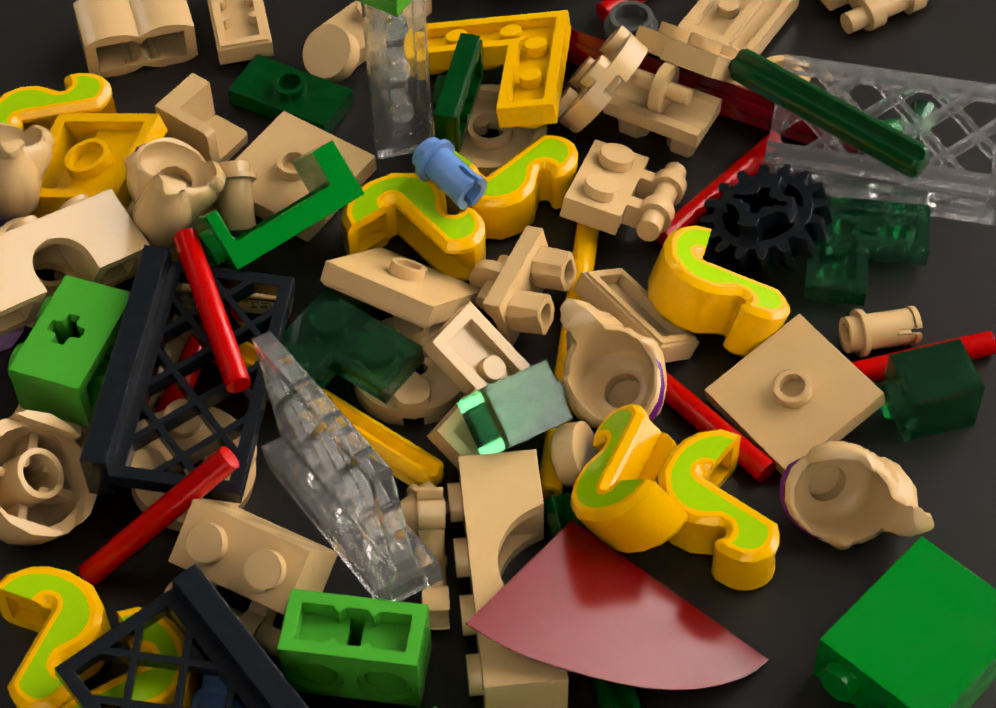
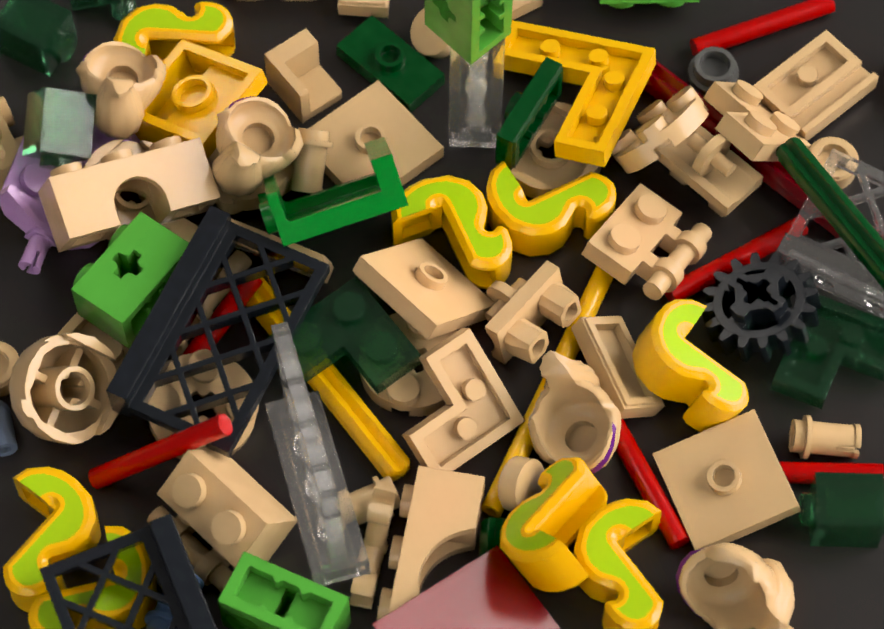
camera: 15 degrees right, 10 degrees up
(212, 311) = (250, 280): red bar -> none
(438, 162) = (487, 183): medium blue pin -> none
(515, 409) = (480, 435): clear green brick -> none

